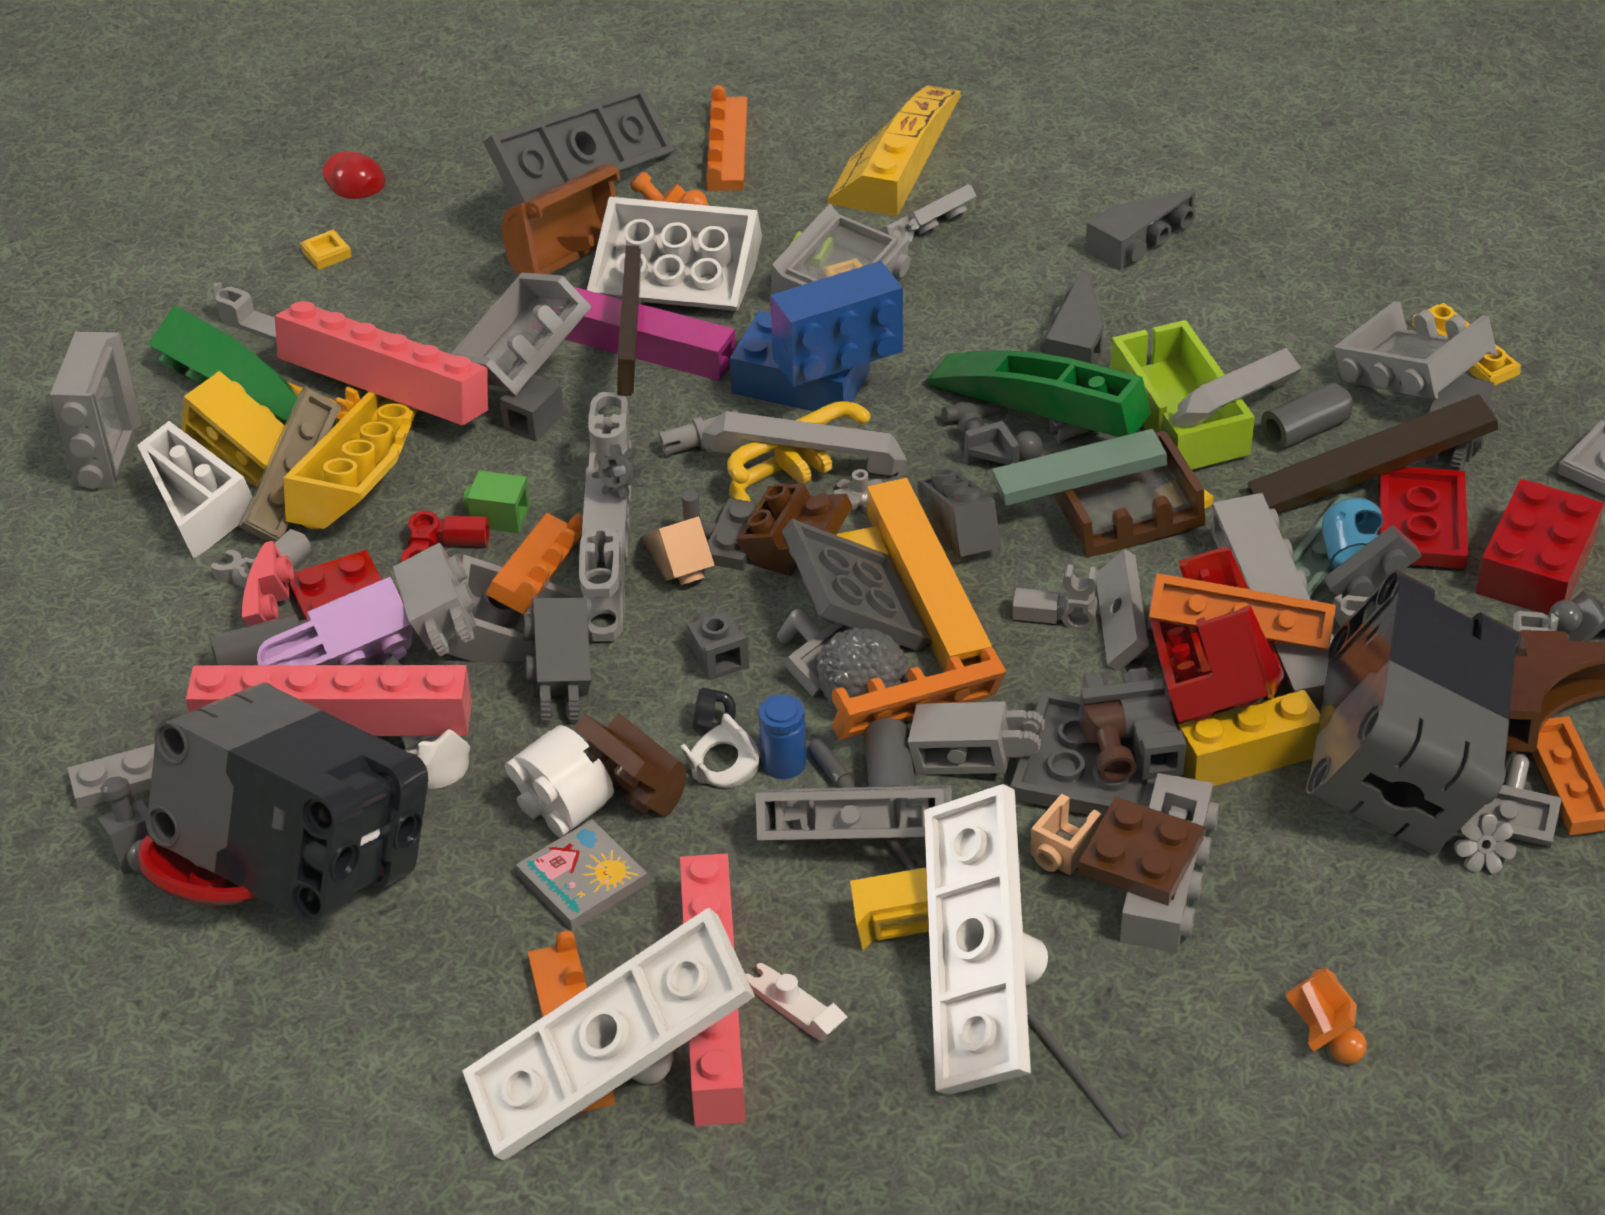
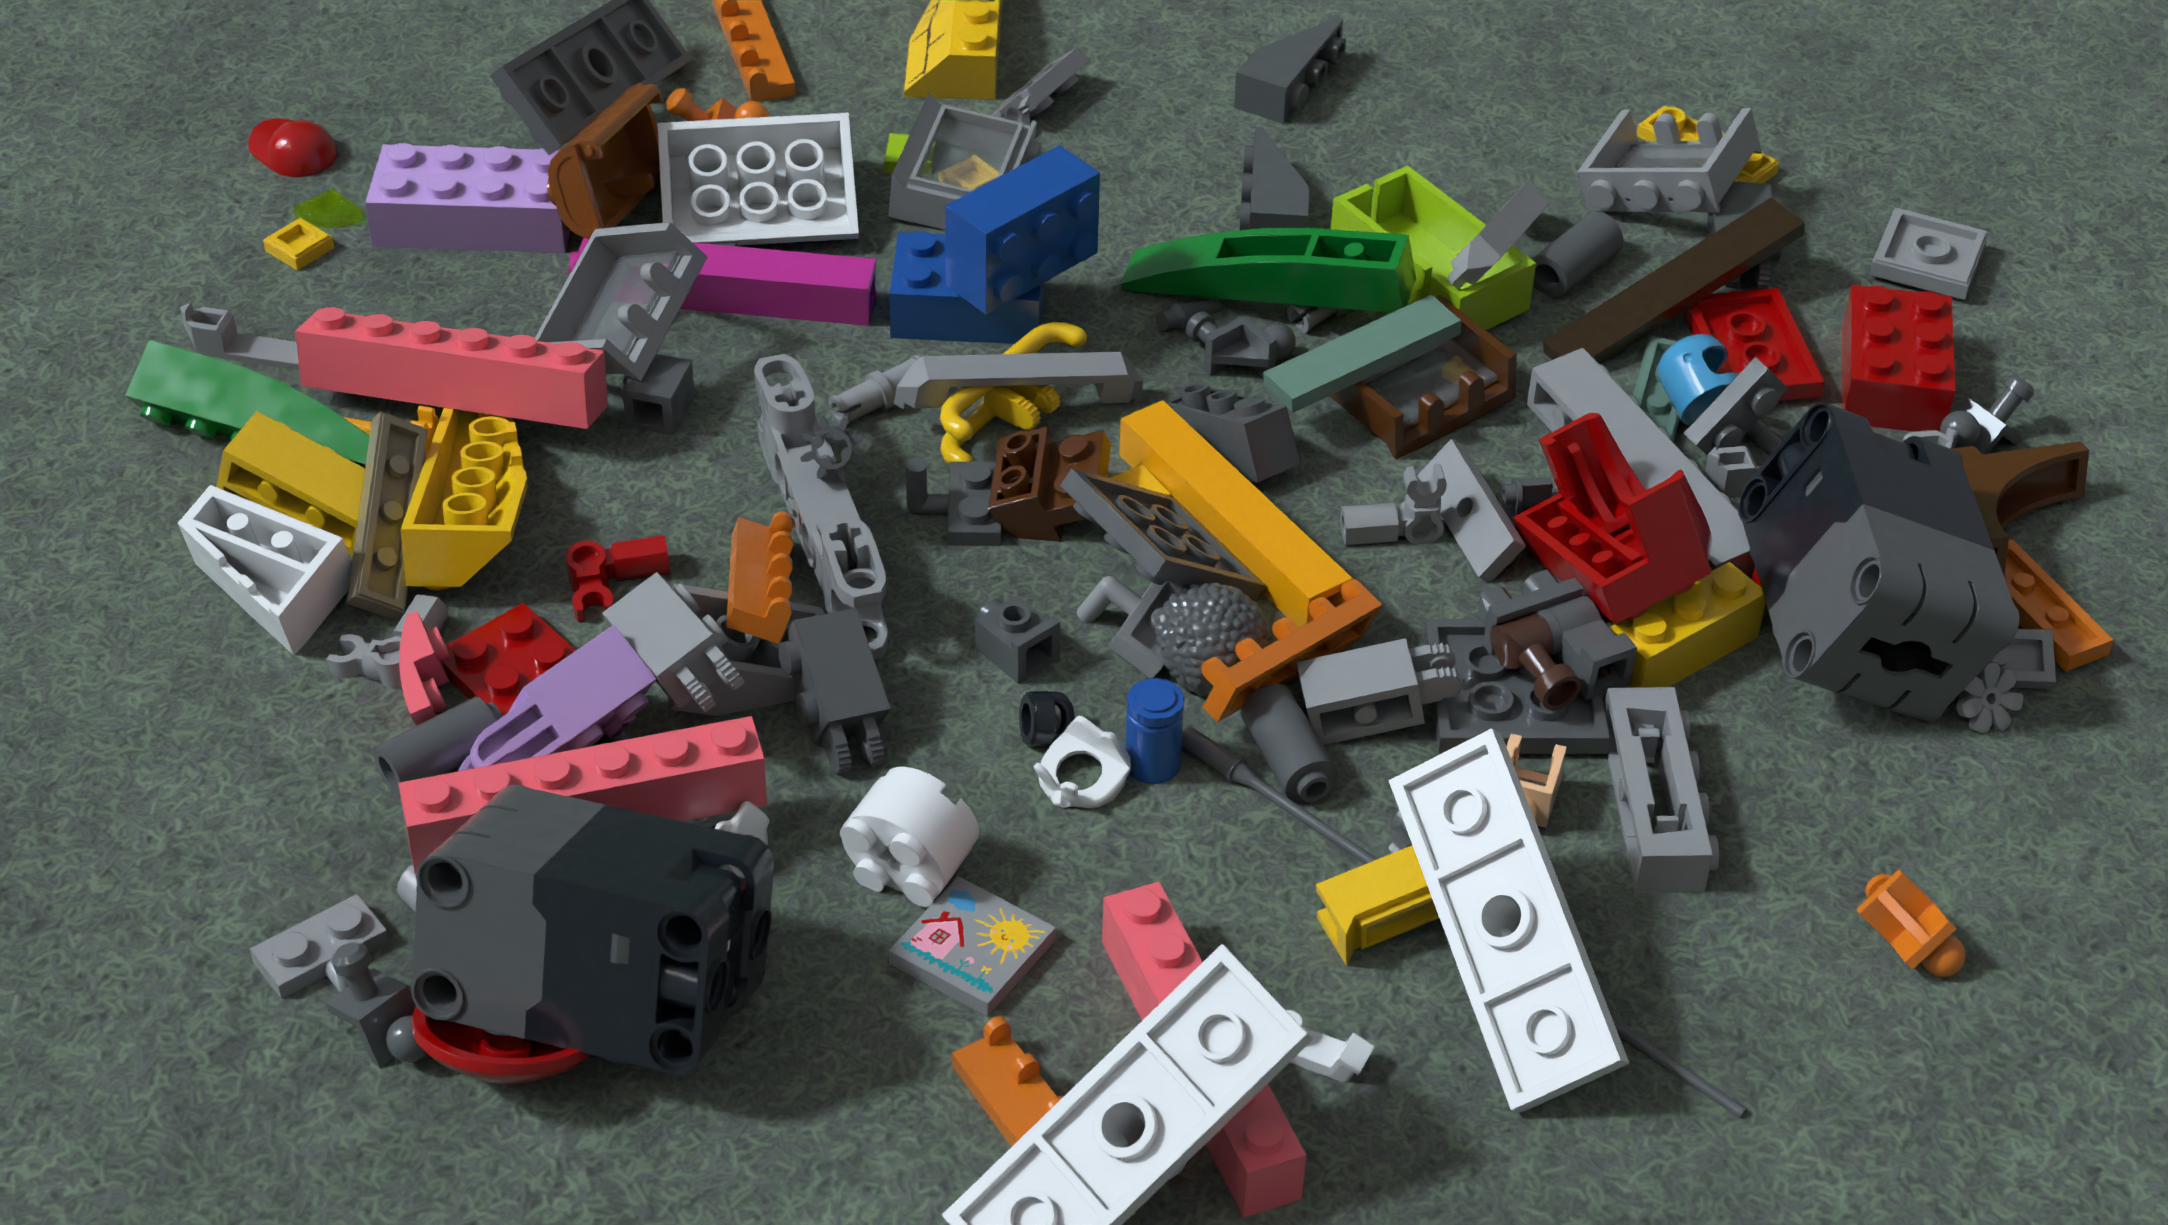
camera: 20 degrees left, 0 degrees up
(95, 407) = (104, 484): light grey window -> none
(358, 226) = (329, 207): none -> clear neon green tile
(445, 234) = (464, 199): none -> lavender piece
(500, 498) = (667, 509): bright green brick -> none
(629, 321) = (756, 267): dark brown tile -> none
(635, 763) = (1005, 798): reddish brown brick -> none
(680, 550) = (923, 533): light nougat slope -> none
(846, 812) = (1281, 803): light grey brick -> none
(856, 489) = (1098, 418): light grey plant -> none
(1141, 850) = (1635, 780): reddish brown plate -> none
(1281, 617) = (1600, 483): orange hinge -> none

